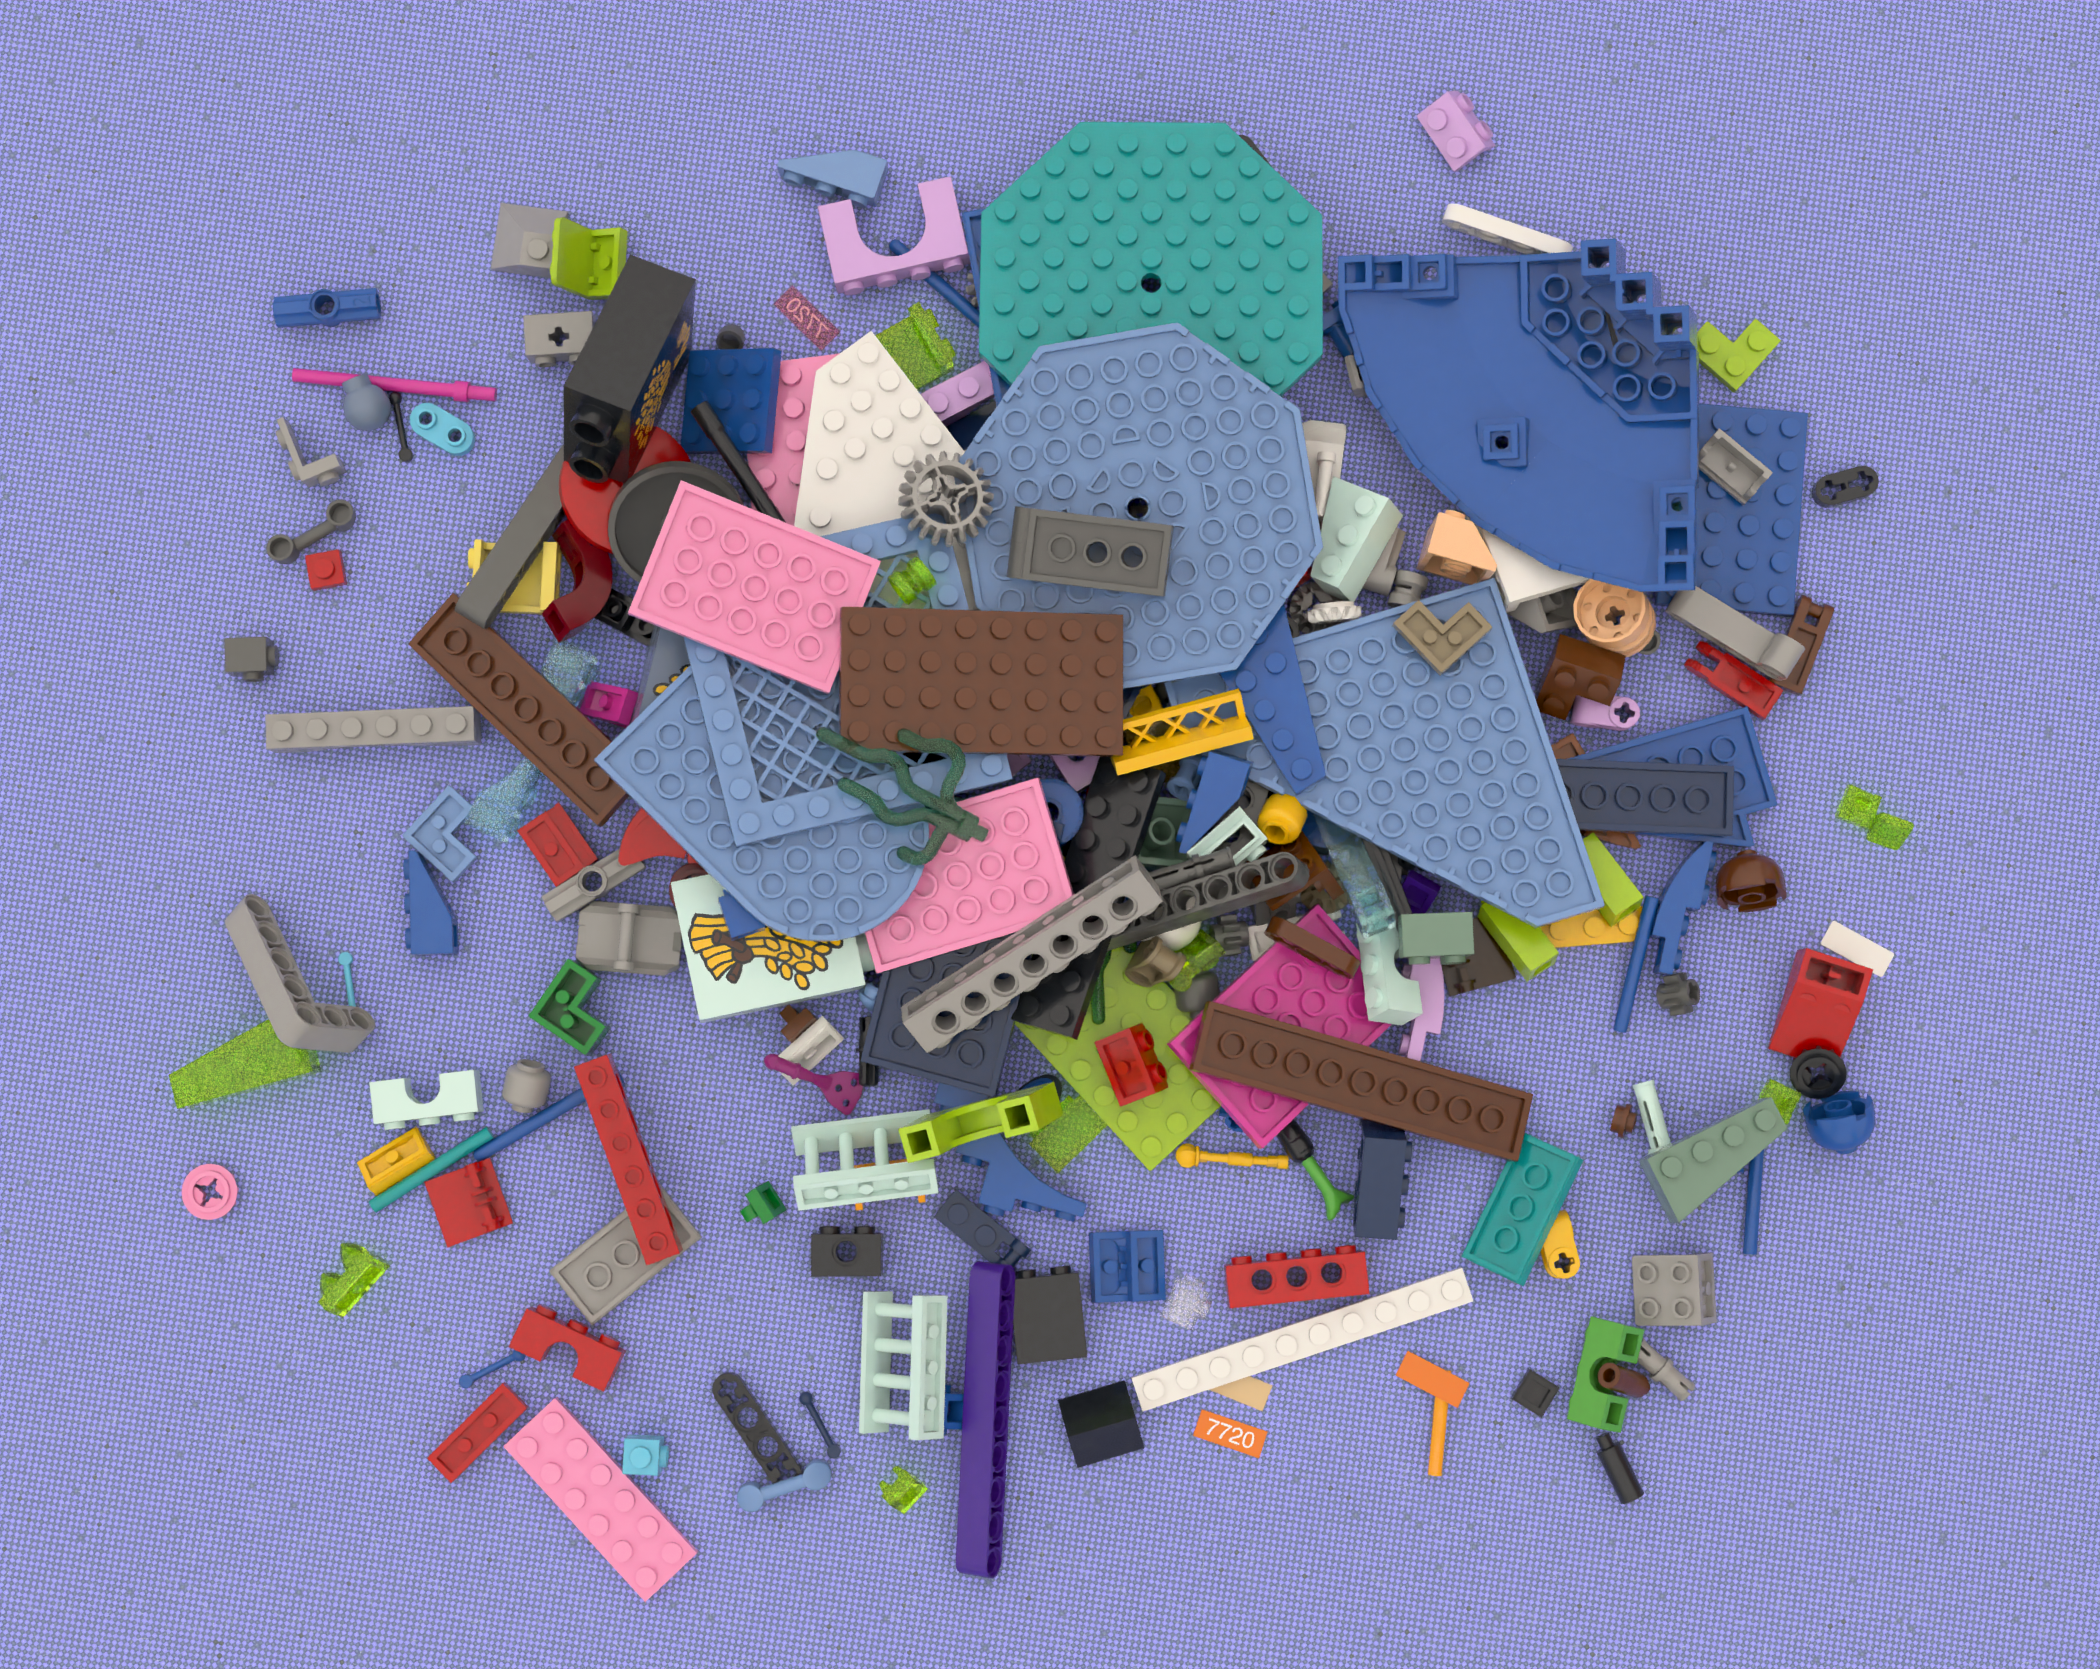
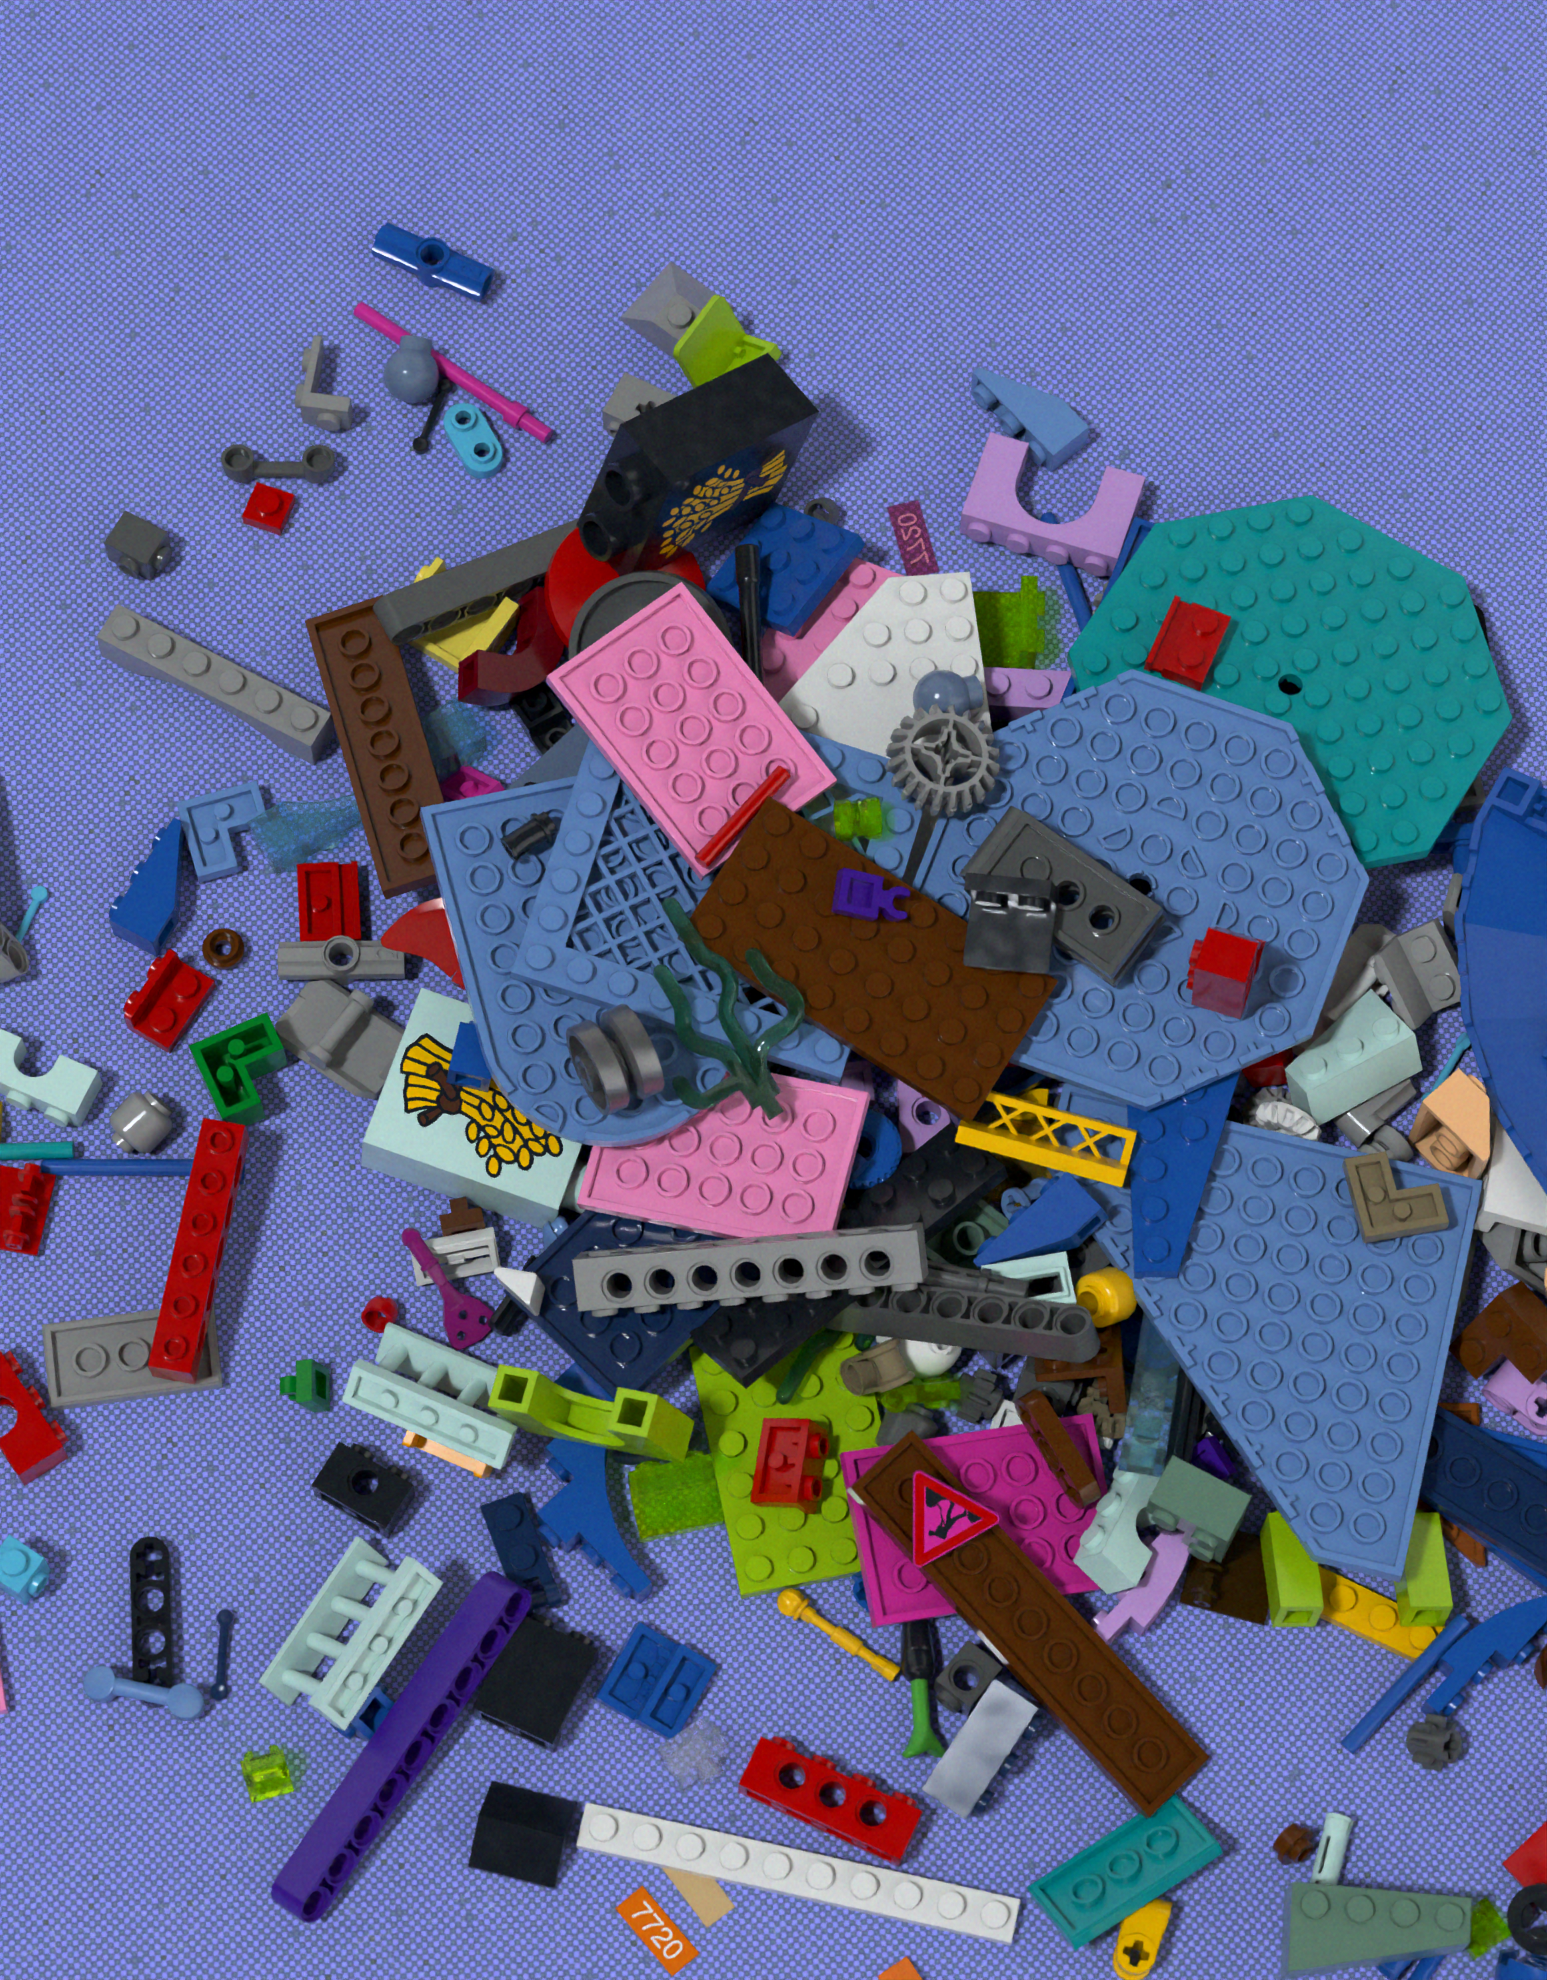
camera: 30 degrees right, 15 degrees down
(488, 984) = (167, 1001): none -> red bracket
(492, 922) = (223, 937): none -> reddish brown plate
(685, 735) = (529, 835): none -> black pin
(780, 1121) = (372, 1312): none -> red hinge
(831, 632) = (742, 817): none -> red bar
(851, 870) = (615, 1059): none -> flat silver wheel
(876, 1055) = (523, 1286): none -> white slope
(914, 441) = (947, 689): none -> sand blue piece
(956, 643) = (862, 896): none -> dark purple plate
(1062, 296) = (1187, 643): none -> red plate
(1071, 602) = (1010, 923): none -> black bracket
(1240, 537) = (1223, 970): none -> red wedge
(1270, 1052) = (944, 1518): none -> piece
(1334, 1123) = (969, 1660): none -> dark grey brick
(1360, 444) = (1419, 972): none -> light grey bracket
(1415, 529) = (1461, 1044): none -> medium azure hinge

